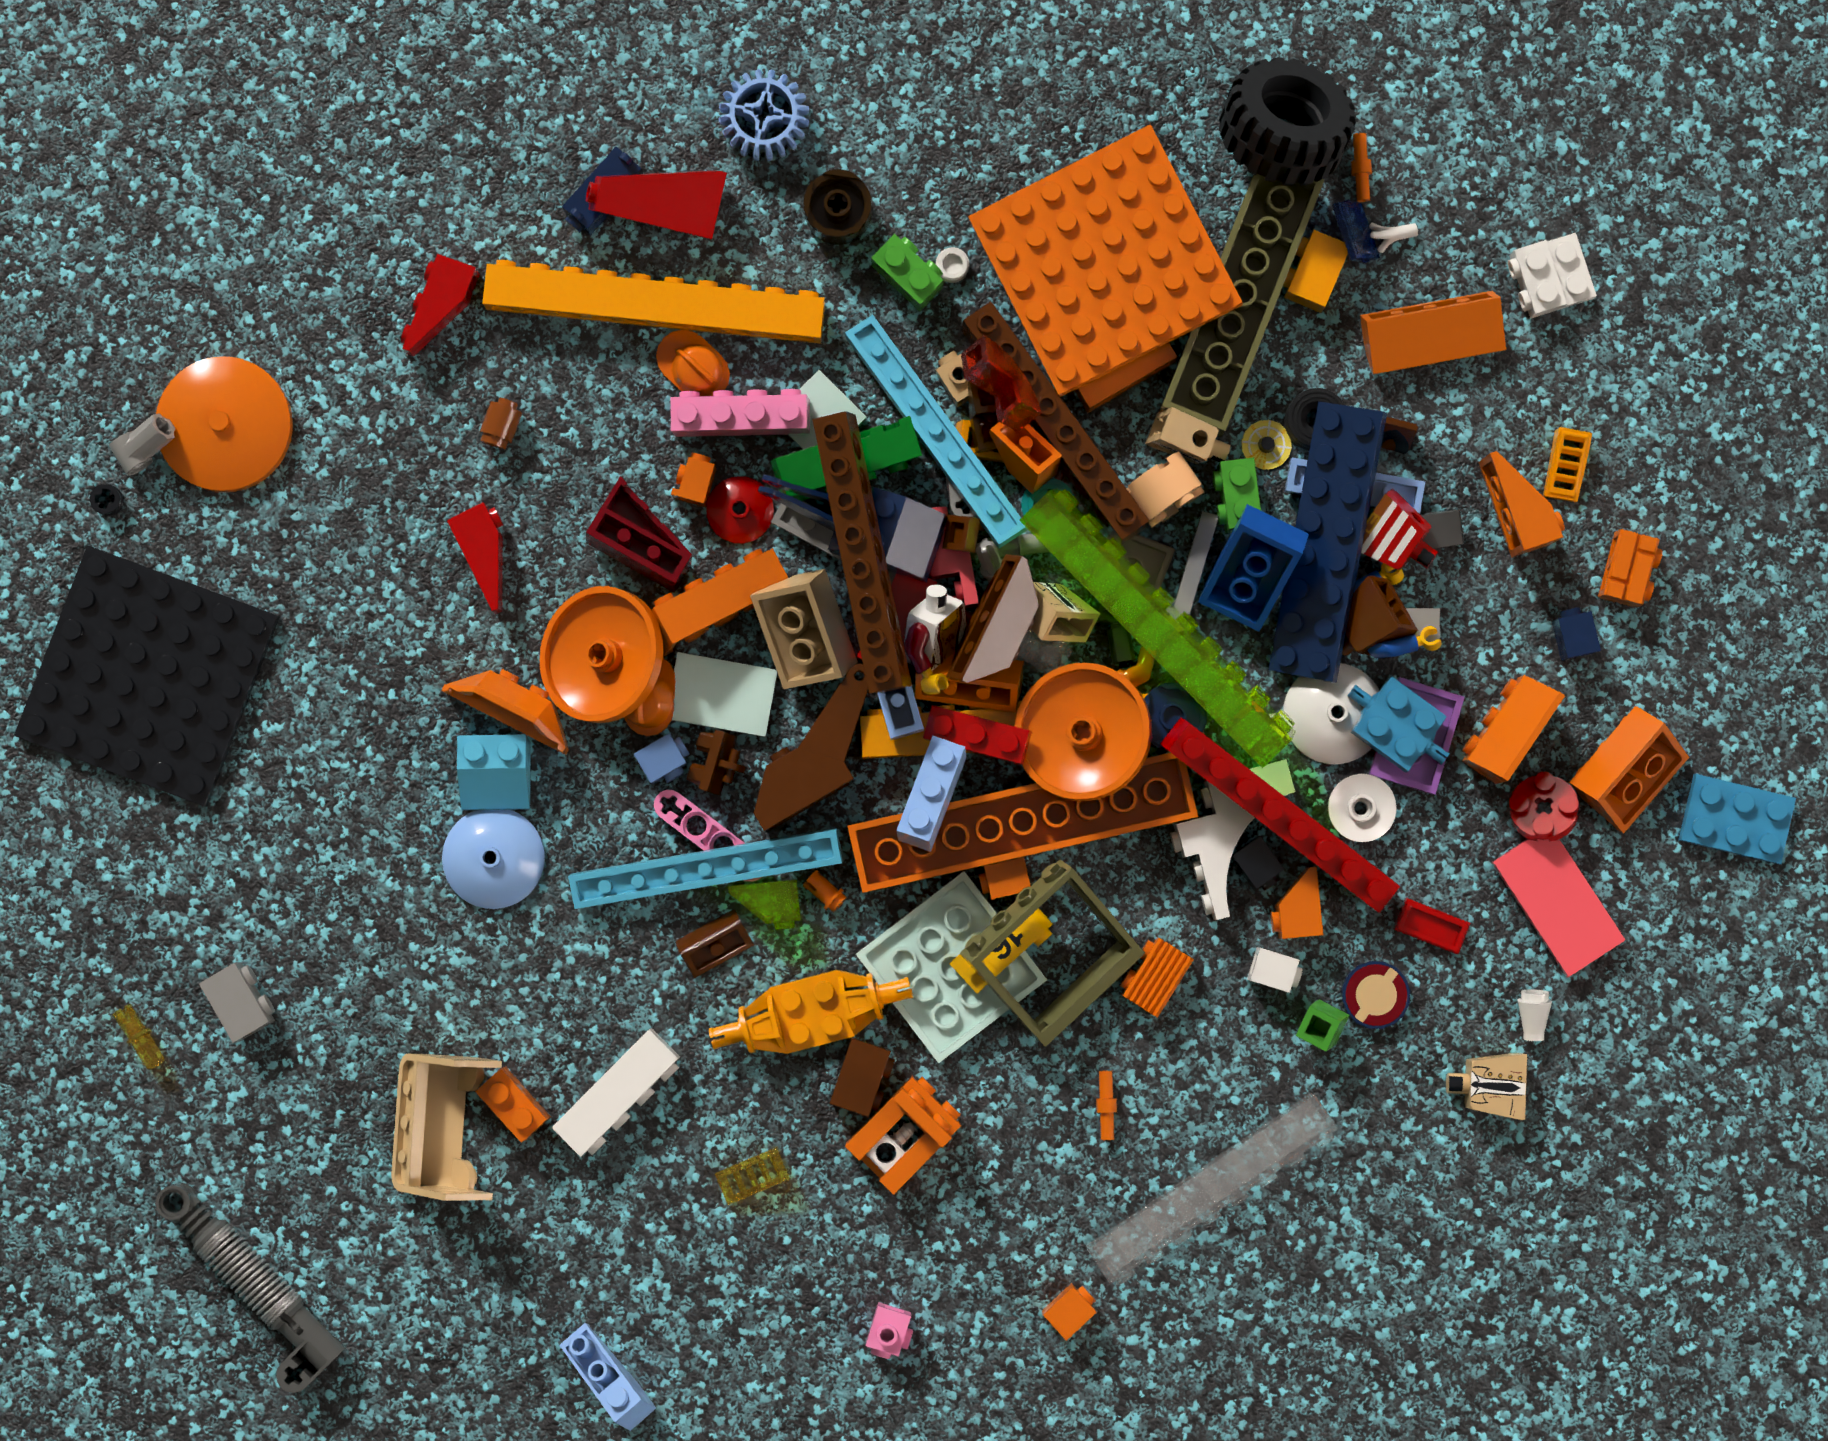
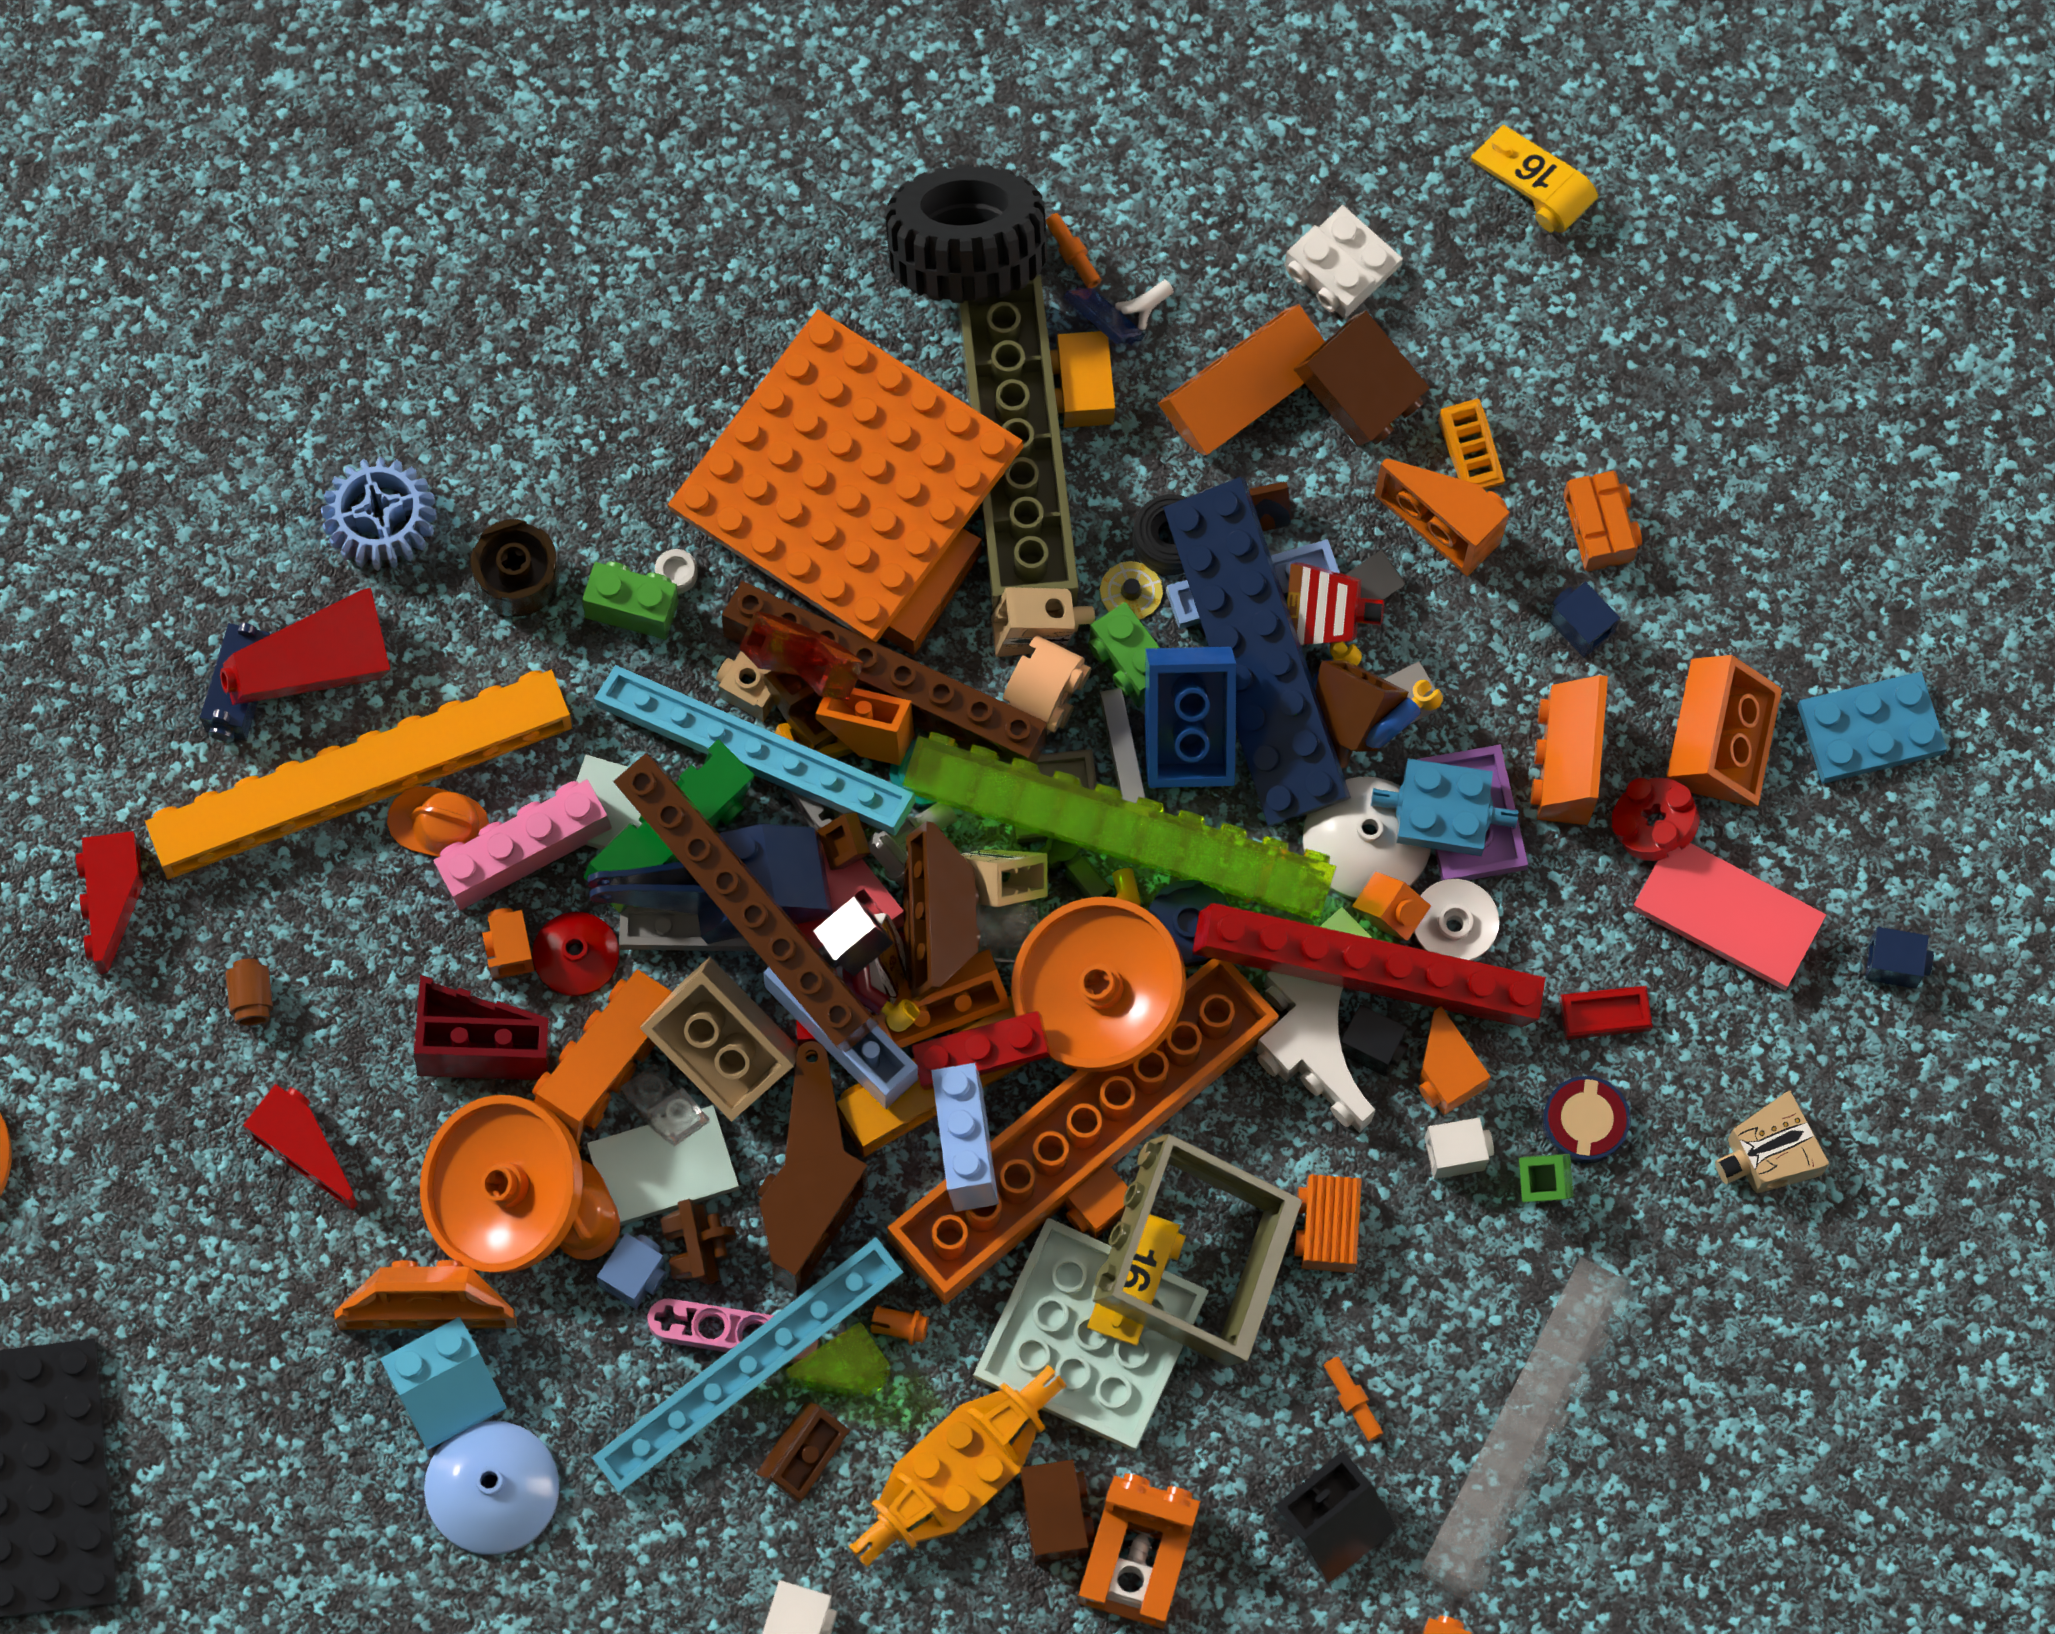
camera: 30 degrees left, 15 degrees down
(742, 654) = (662, 1106): none -> clear slope
(925, 615) = (852, 937): none -> brick
(1047, 1182) = (1334, 1517): none -> black slope
(1321, 775) = (1391, 906): none -> orange brick
(1515, 376) = (1363, 380): none -> reddish brown brick
(1534, 1013) = (1773, 1047): white cone -> none
(1659, 997) = (1898, 958): none -> dark blue brick
(1736, 296) = (1555, 187): none -> yellow door

